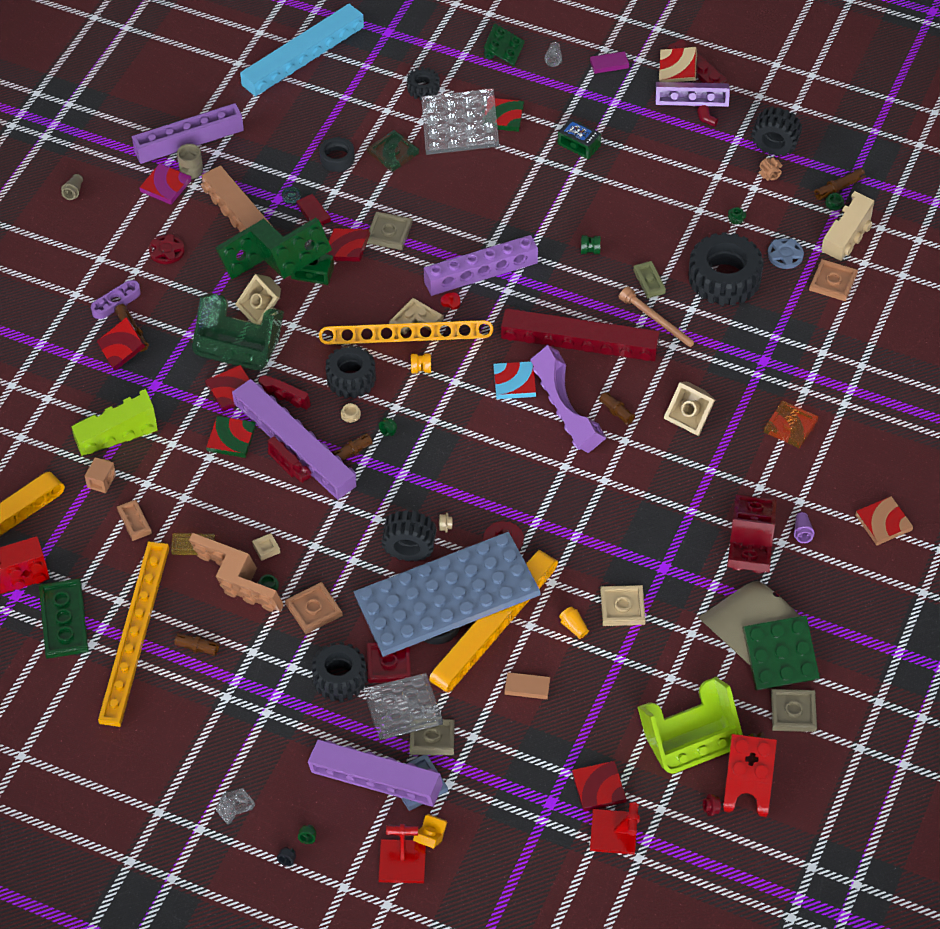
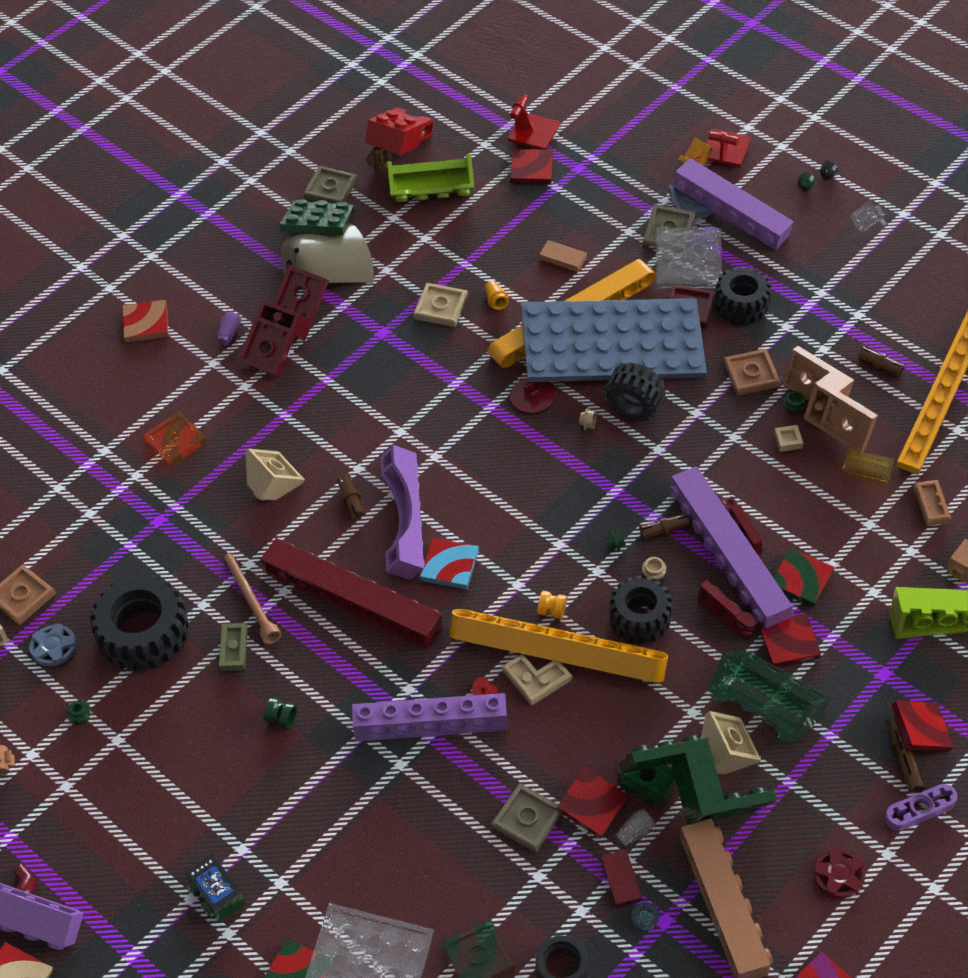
camera: 160 degrees left, 0 degrees up
(711, 805) = (441, 128): dark red plate -> none

